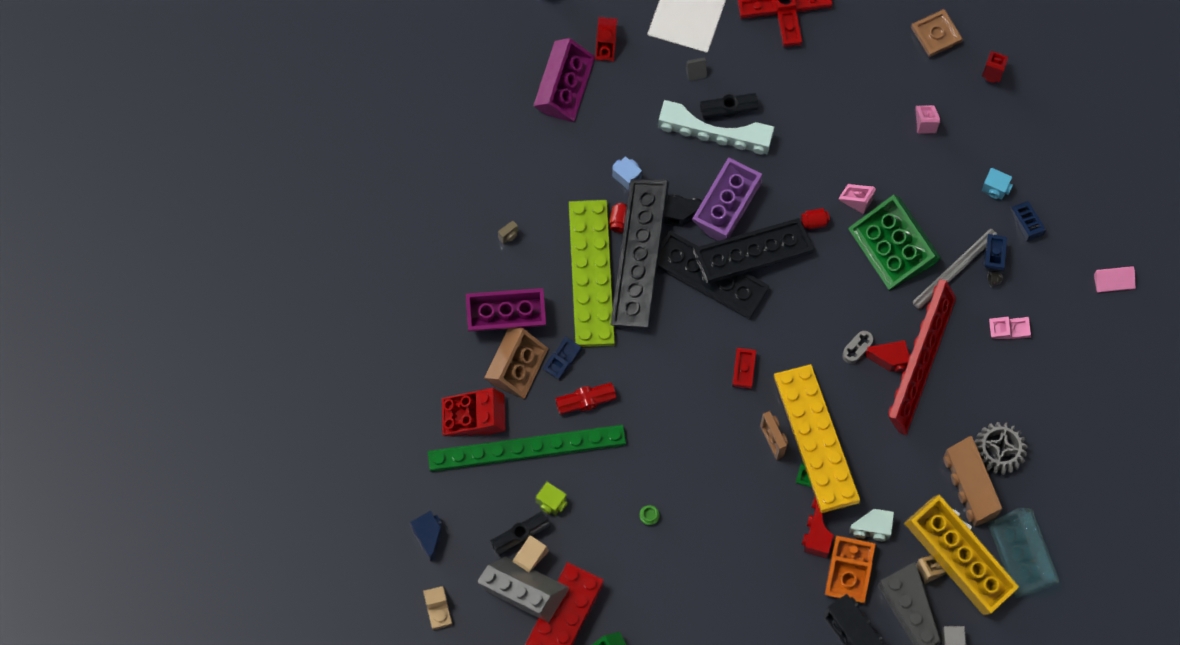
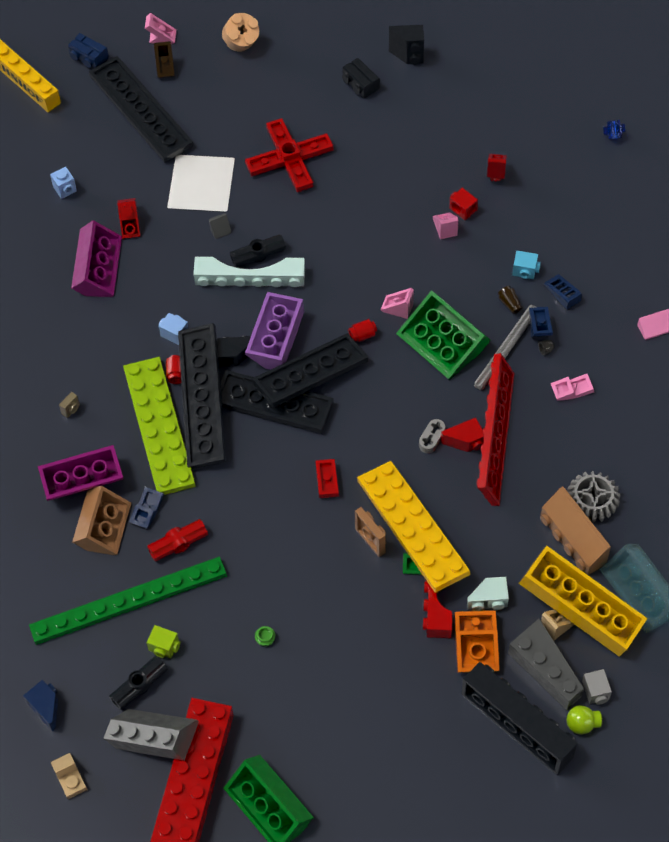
camera: 10 degrees left, 10 degrees down
(474, 413) = (69, 578): red slope -> none
(530, 554) = (153, 697): tan slope -> none
(936, 33) = (435, 151): medium nougat plate -> none
(950, 100) = (463, 203): none -> red brick
(972, 218) = (509, 298): none -> dark brown cone
(1128, 51) = (614, 129): none -> clear blue gear

